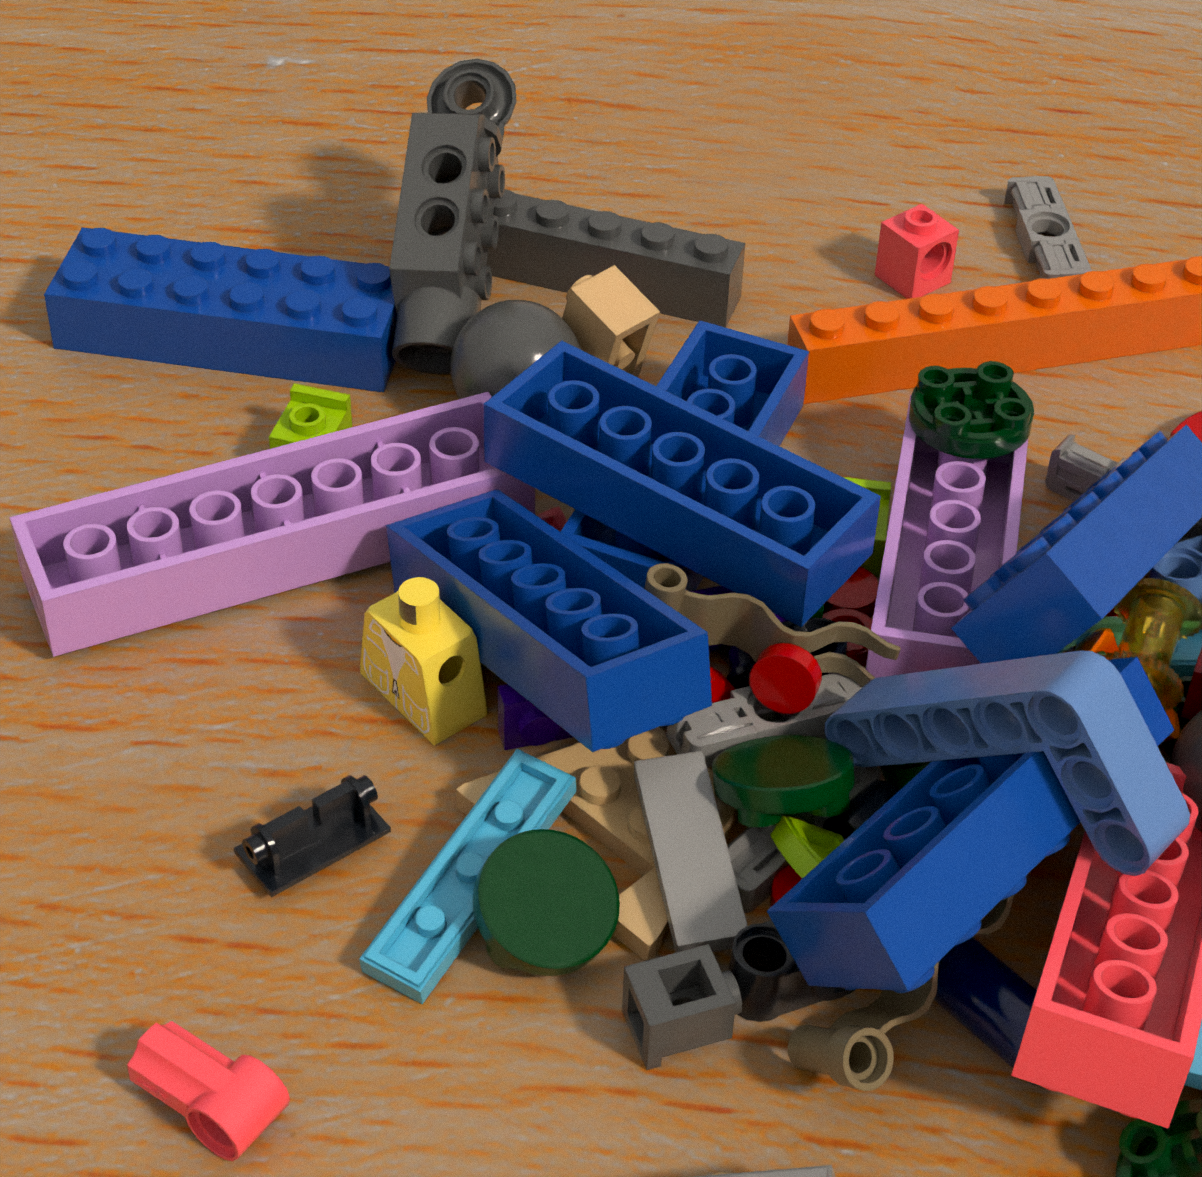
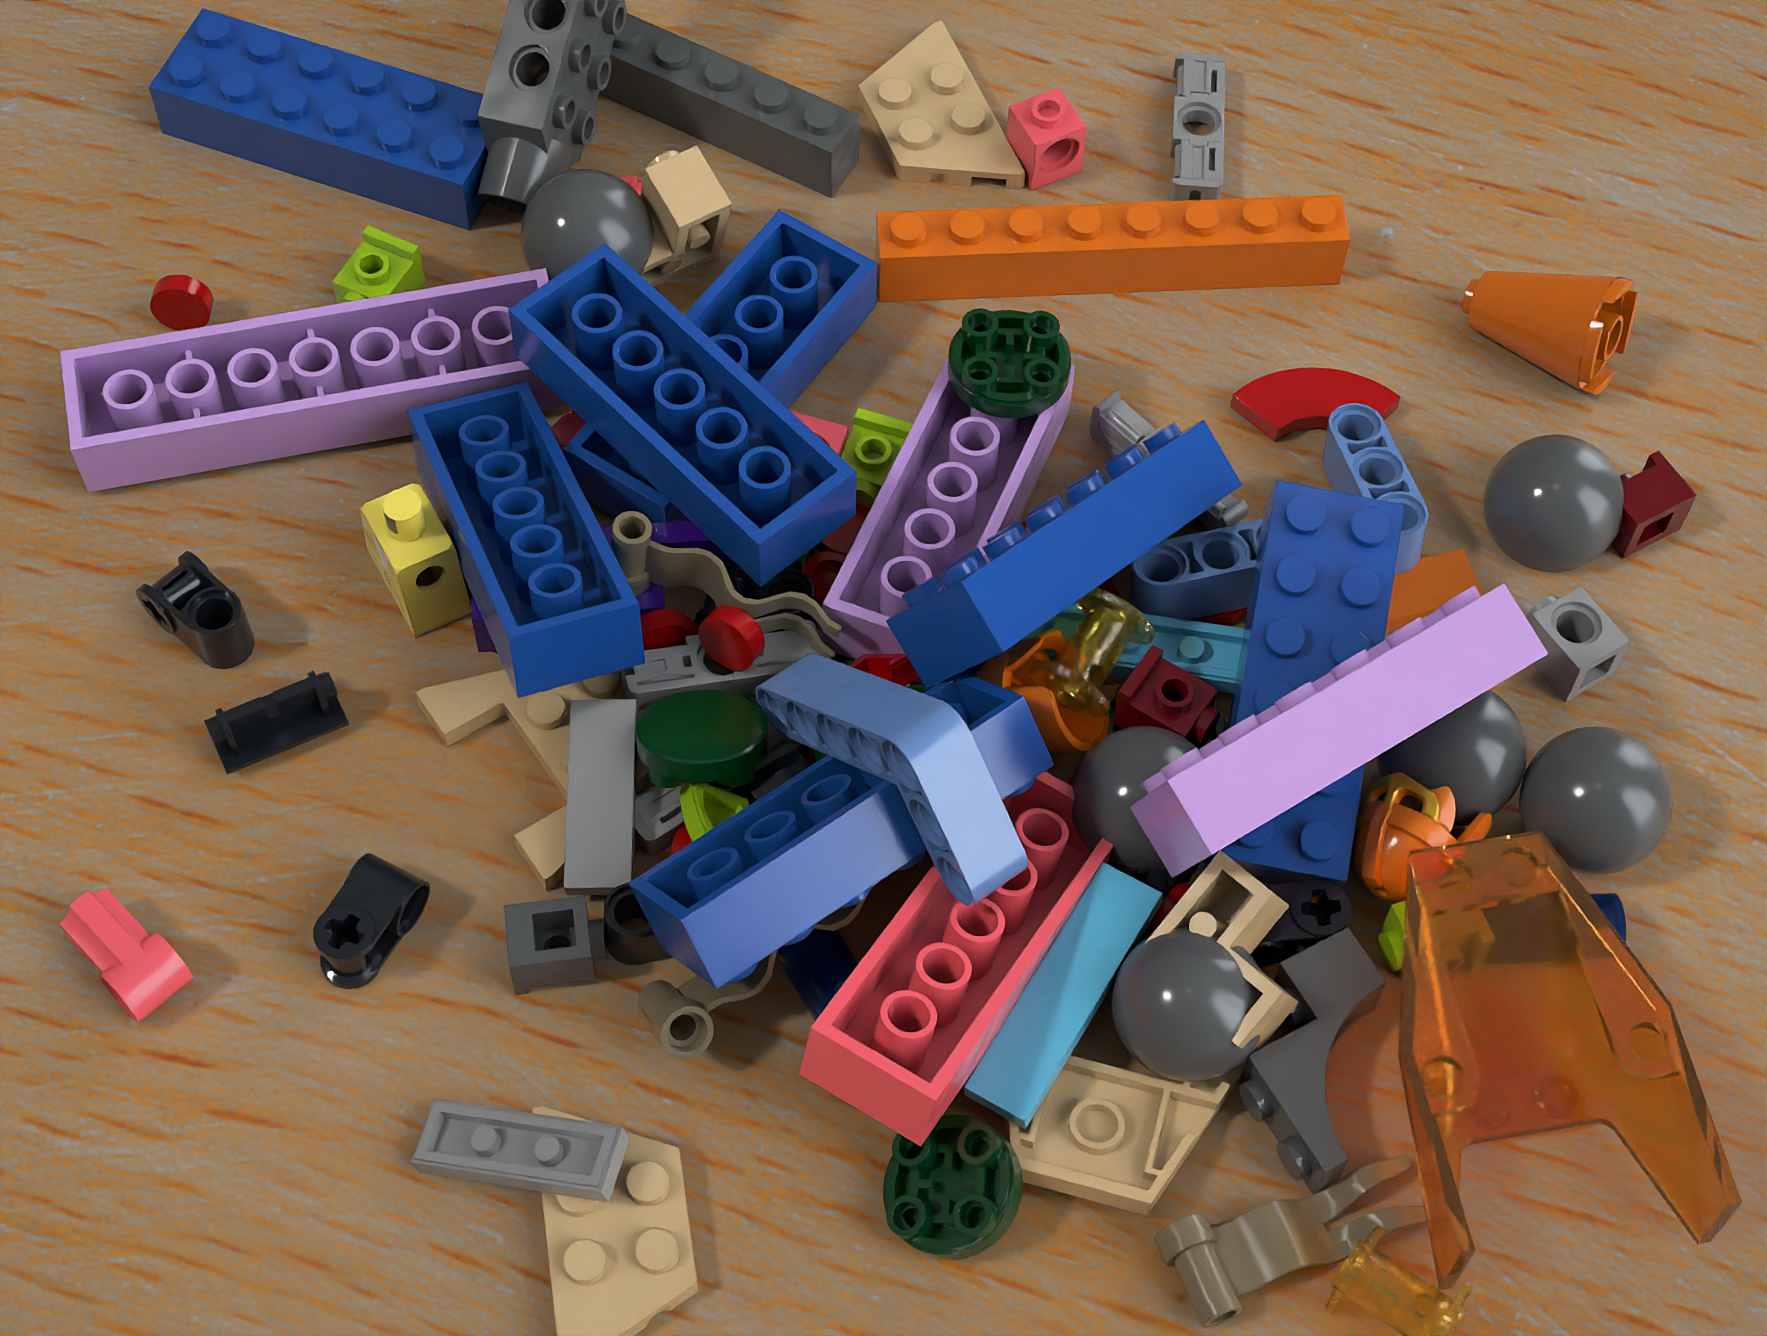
camera: 10 degrees right, 15 degrees up
(112, 469) = (181, 302): none -> red tile
(204, 746) = (194, 606): none -> black piece
(438, 911) = (405, 779): medium azure tile -> none
(469, 1015) = (367, 920): none -> black piece
(545, 903) = (458, 826): dark green tile -> none
(805, 255) = (936, 116): none -> tan wing

